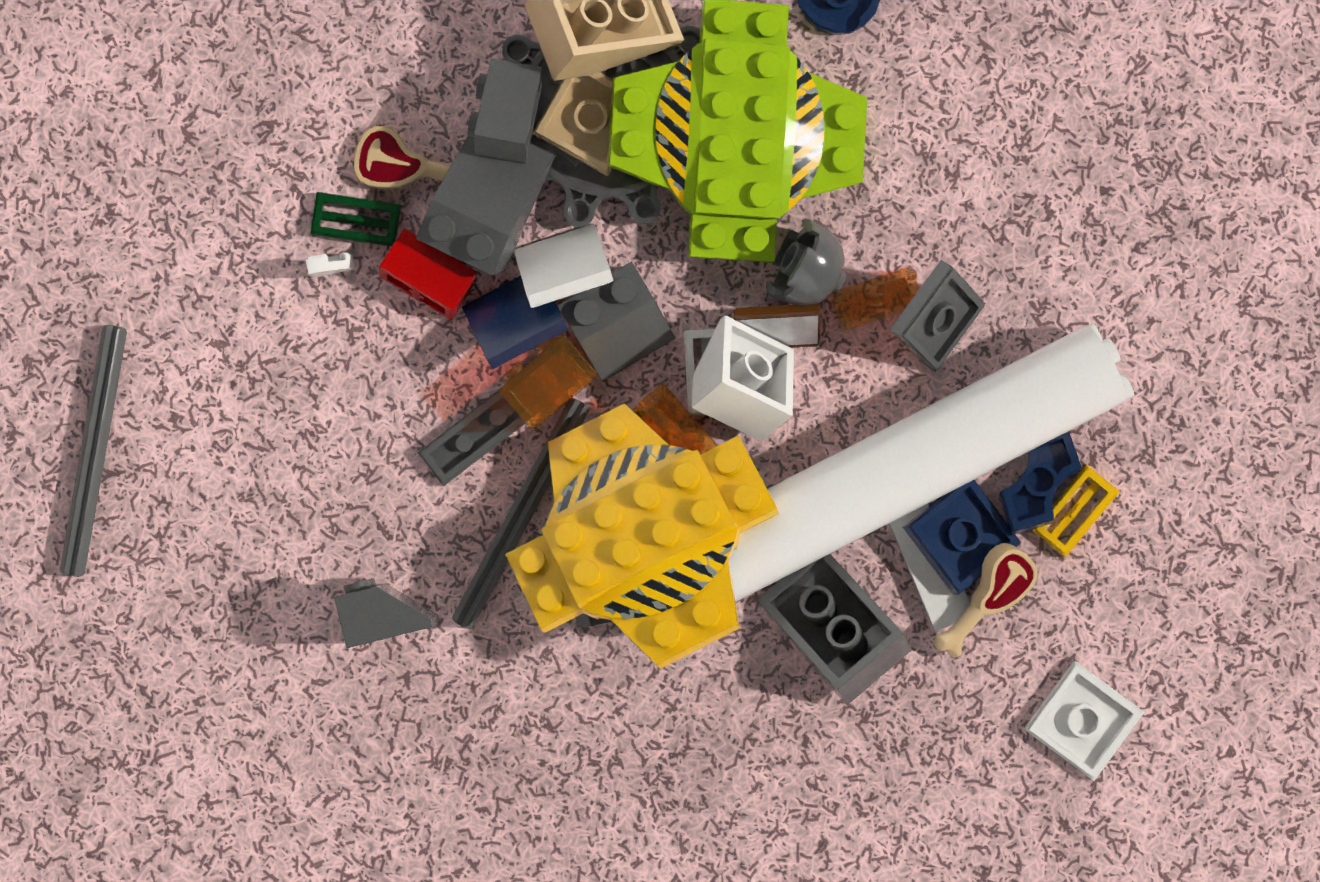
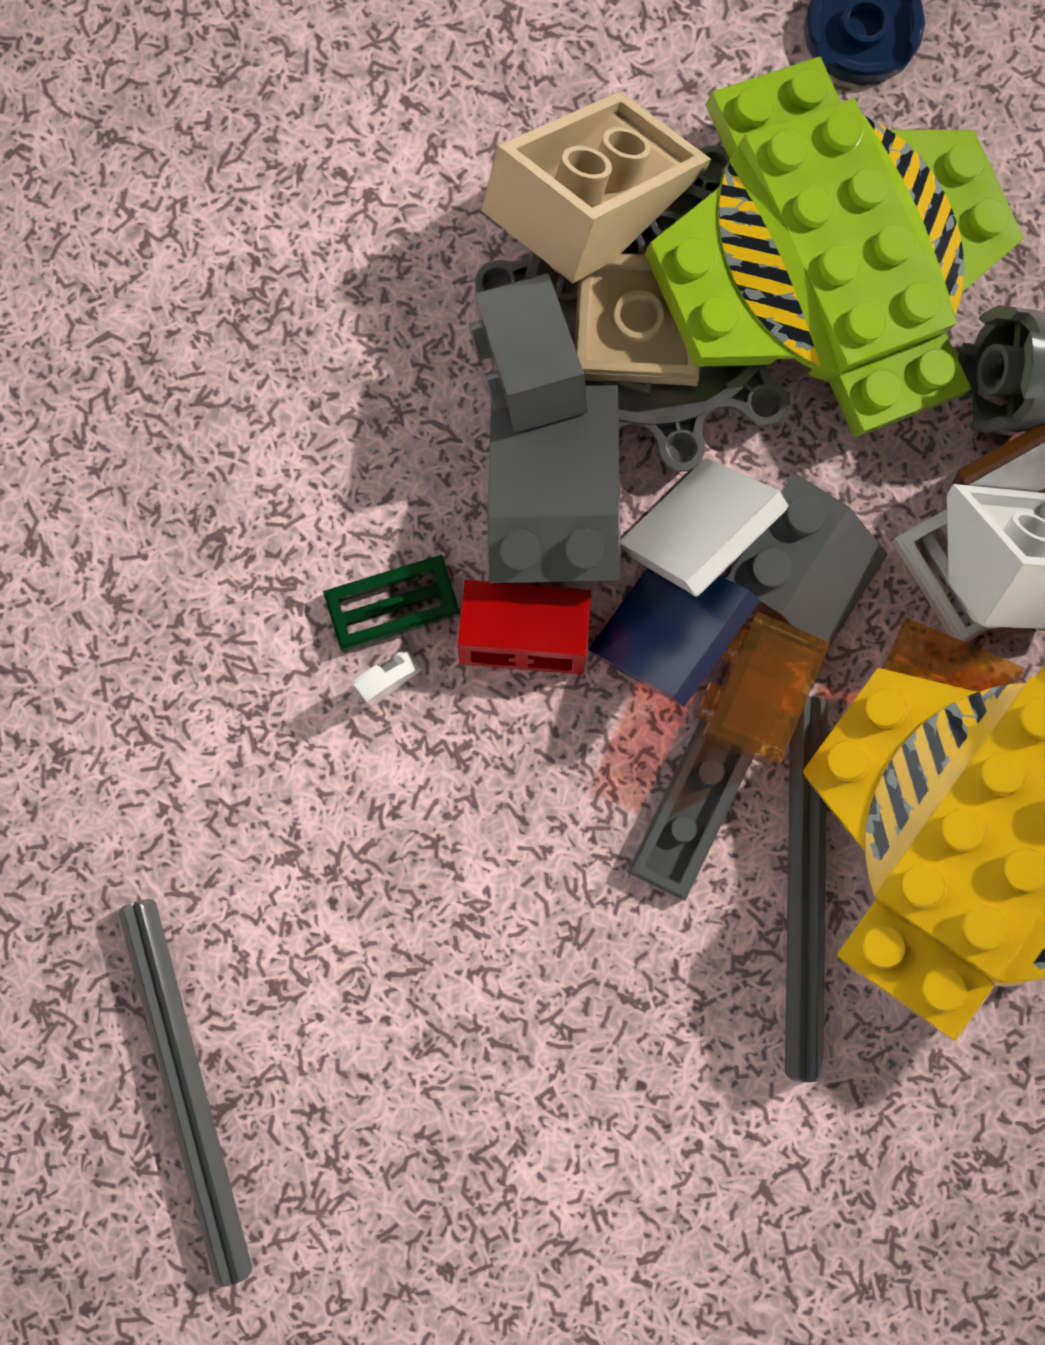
camera: 25 degrees left, 5 degrees down
(379, 613) = (701, 1127): dark grey slope -> none
(386, 162) = (398, 511): piece -> none

